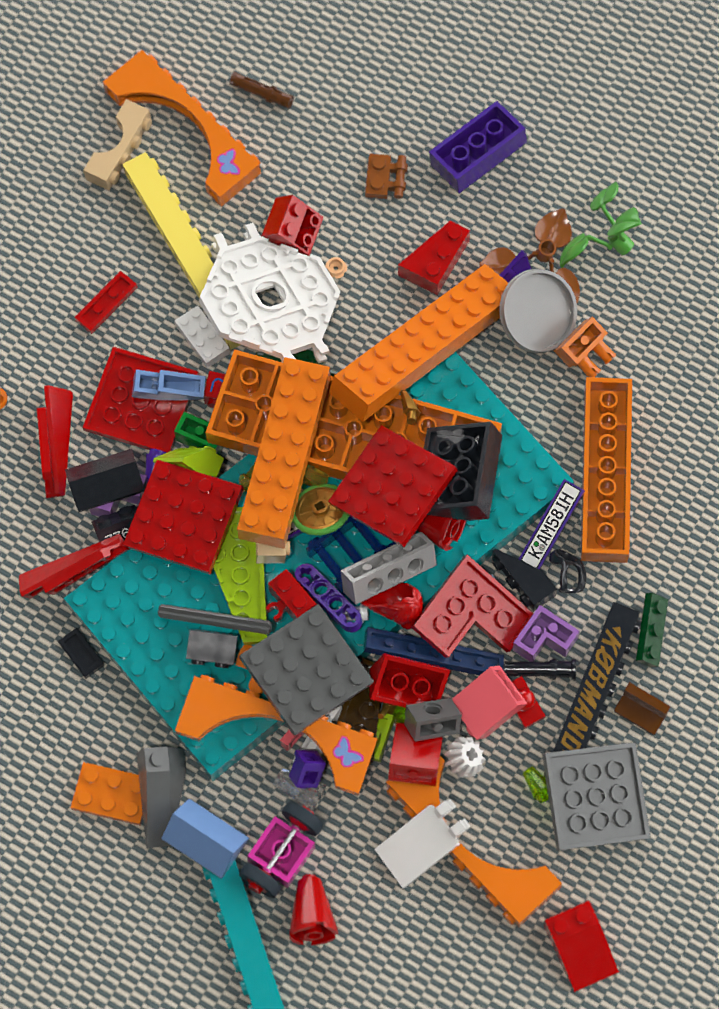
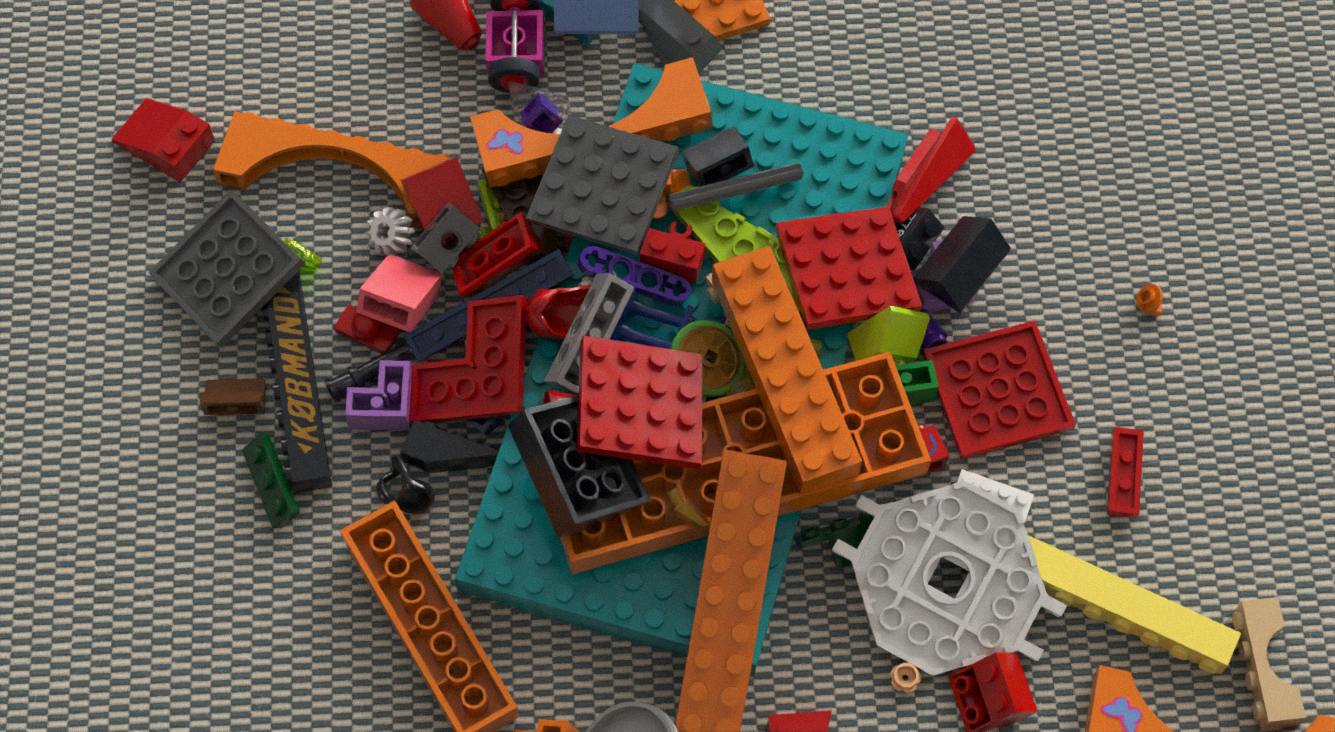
camera: 140 degrees right, 5 degrees down
(54, 438) = (1057, 297): red wedge -> none
(81, 653) = (854, 109): black tile -> none
(168, 385) = (979, 410): medium blue slope -> none
(421, 843) = (380, 126): white tile -> none
(551, 524) = (450, 519): tile -> none

